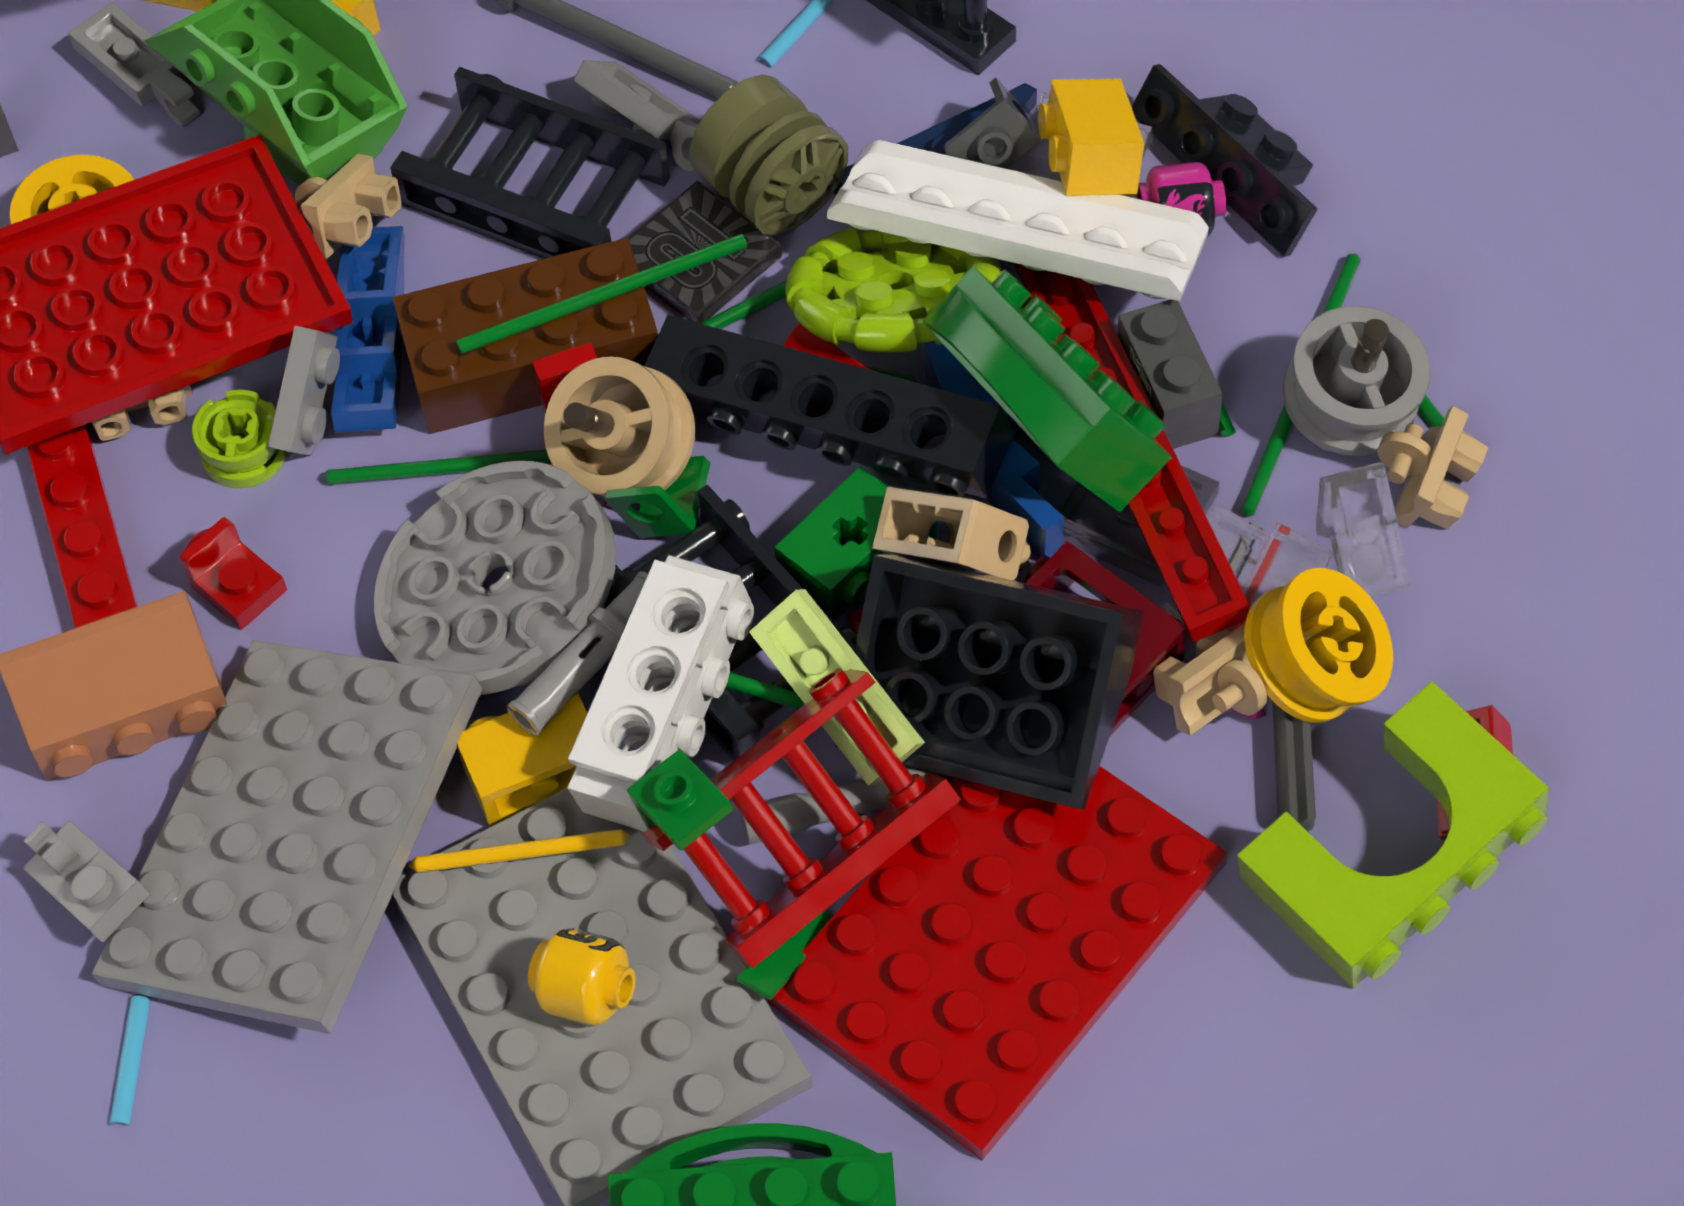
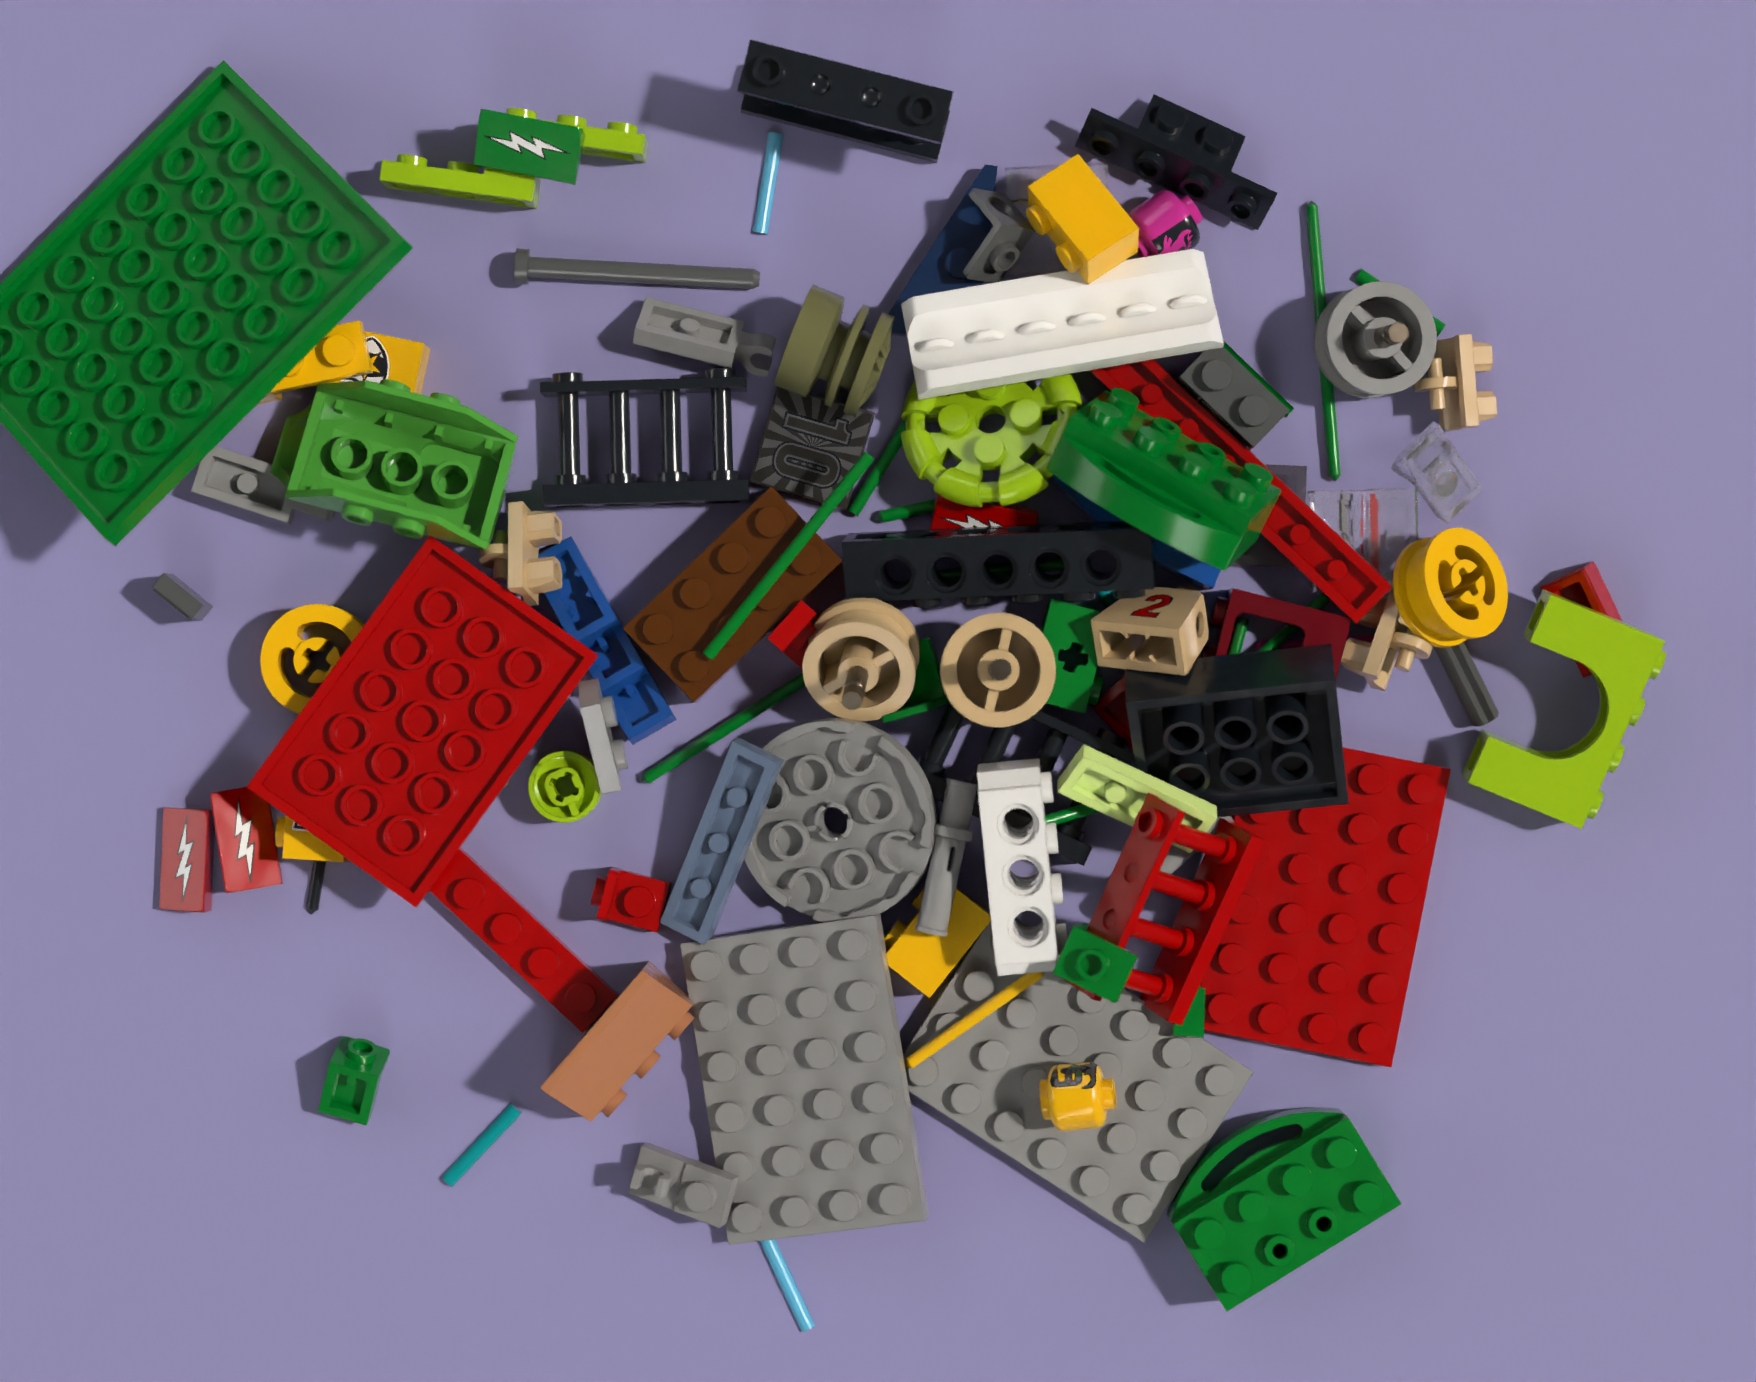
camera: 30 degrees left, 30 degrees up
(360, 546) = (721, 840): none -> sand blue plate
(755, 483) = (997, 670): none -> tan wheel

